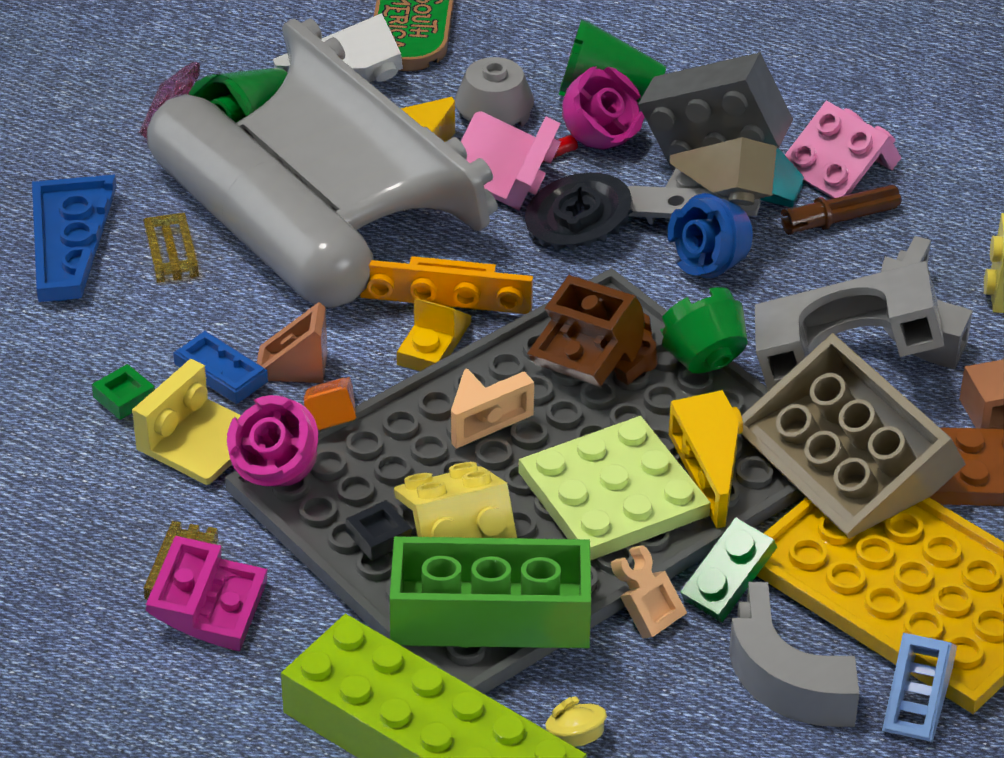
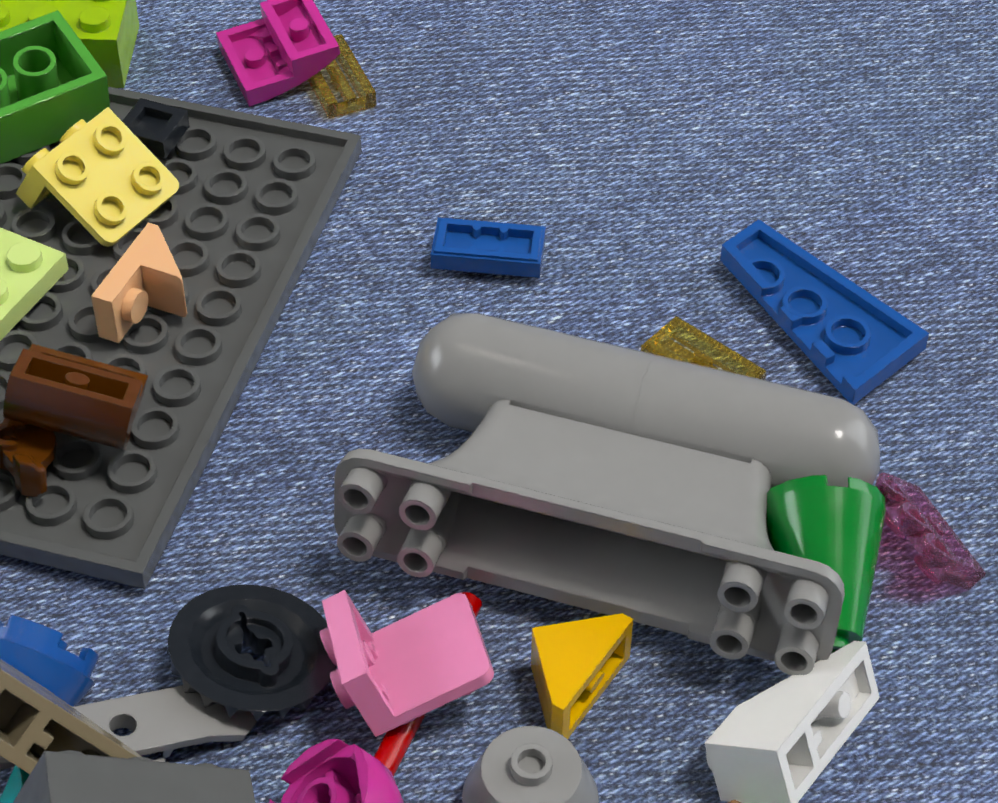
camera: 145 degrees right, 5 degrees up
(122, 391) = (553, 177): green plate -> none
(184, 426) = (437, 174): light yellow bracket -> none
(273, 442) = (310, 125): dark pink cone -> none
(298, 349) = (419, 293): nougat slope -> none
(331, 403) = (321, 210): orange slope -> none
(433, 336) = (301, 405): yellow slope -> none
(450, 284) = (306, 449): light orange bracket -> none

